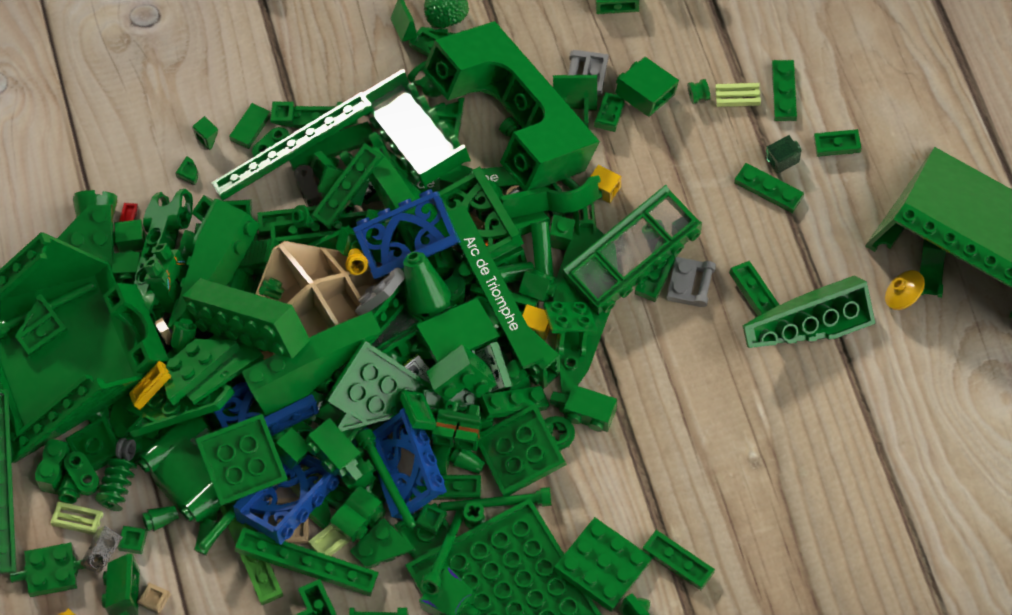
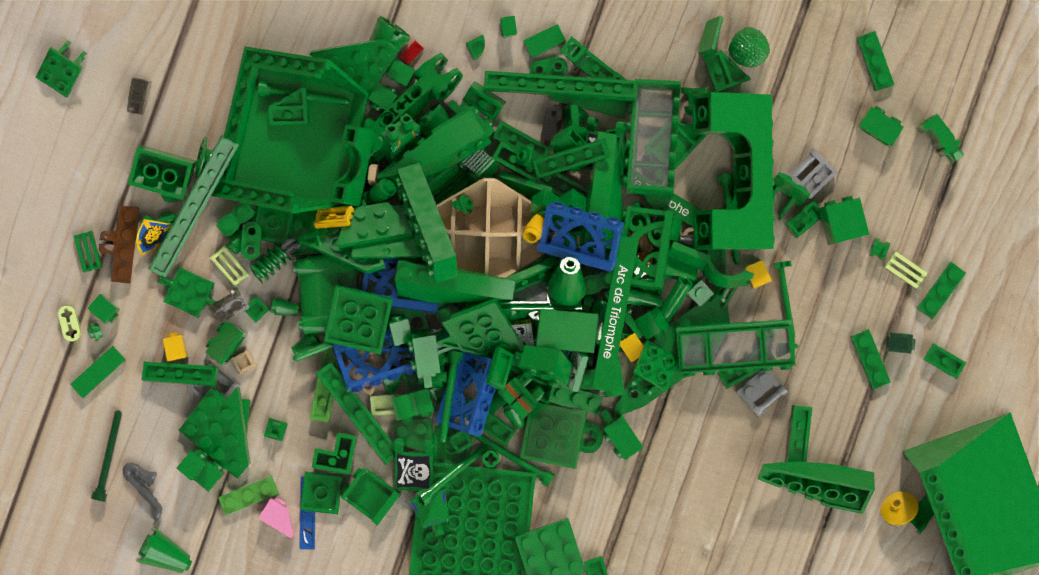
camera: 30 degrees right, 25 degrees up
(202, 207) = (464, 96): green slope -> none
(377, 294) = (530, 270): light grey plate -> none
(401, 573) = (413, 469): none -> flag
(620, 164) = (784, 290): none -> green piece

